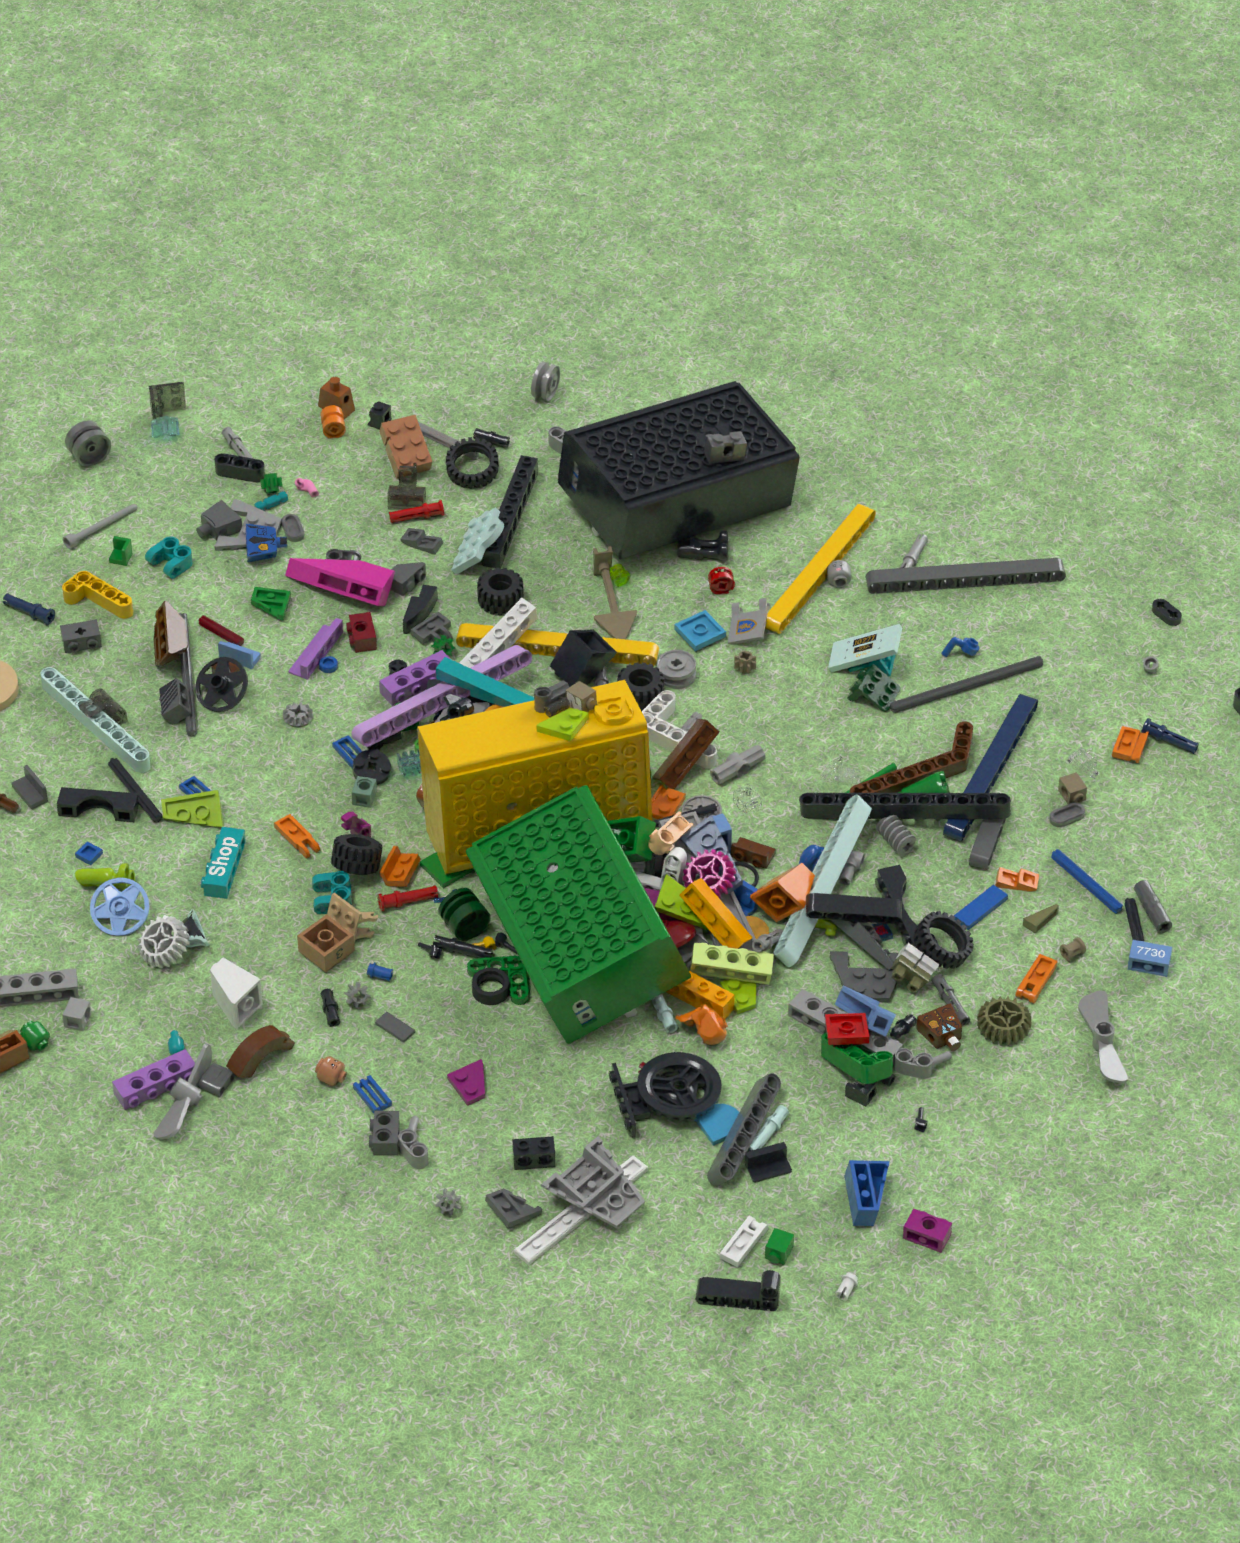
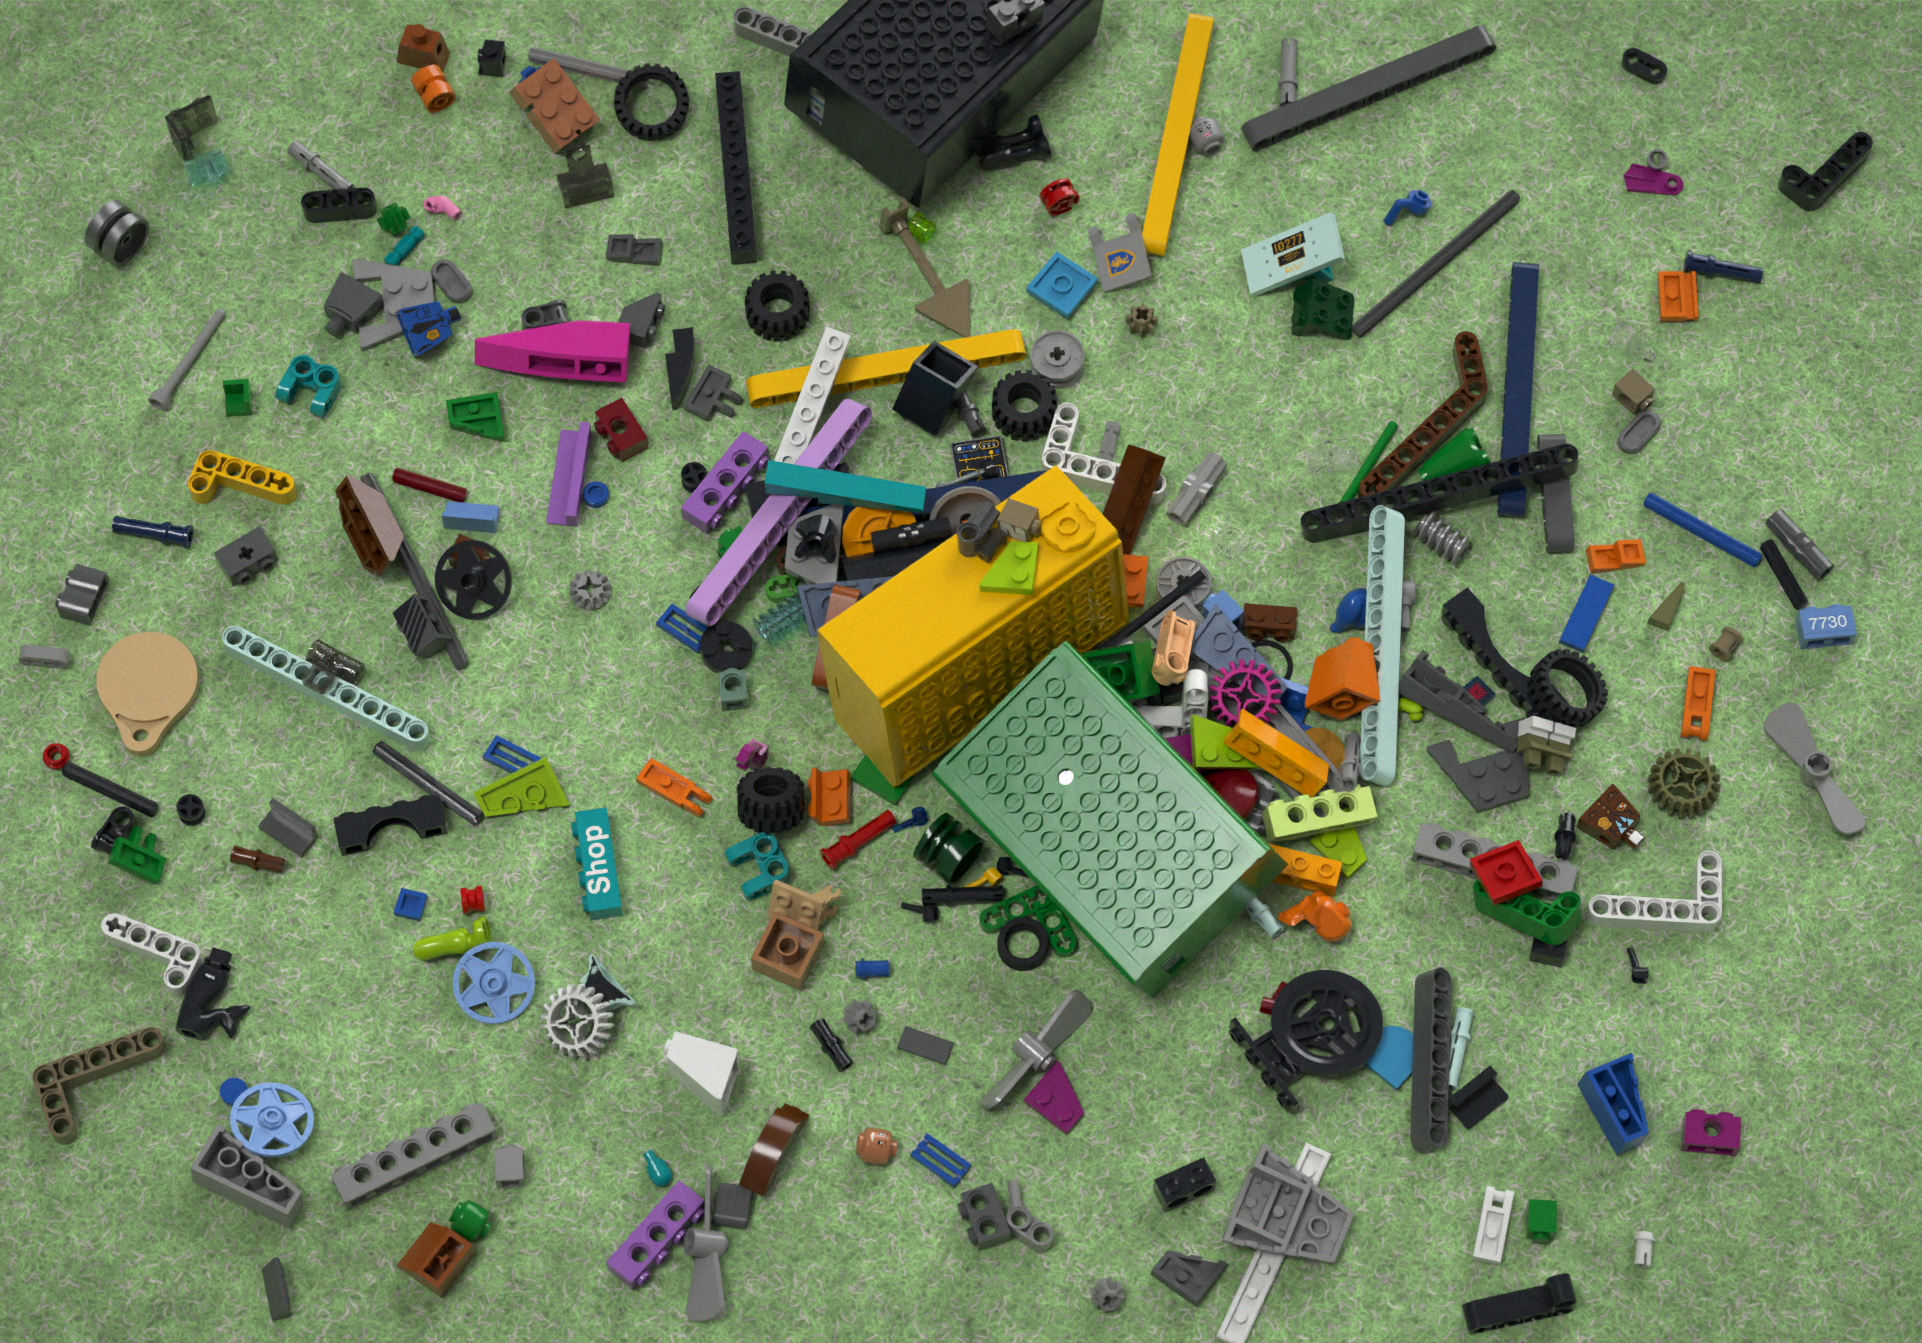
camera: 20 degrees left, 20 degrees up
(131, 858) = (472, 899): none -> red wheel
(425, 511) = (620, 199): red pin -> none
(443, 642) = (738, 420): green gear -> none
(479, 536) = (715, 231): light aqua plate -> none
(492, 437) = (657, 47): black pin -> none
(497, 1035) = (1038, 1050): none -> light grey piece
(853, 908) = (1442, 681): black beam -> none
(855, 1002) = (1511, 824): medium blue arch -> none
(919, 1065) = (1598, 882): light grey beam -> none
(941, 984) = (1582, 750): dark grey pin -> none
(954, 1092) = (1667, 907): none -> white beam
(1143, 678) = (1651, 181): none -> magenta piece

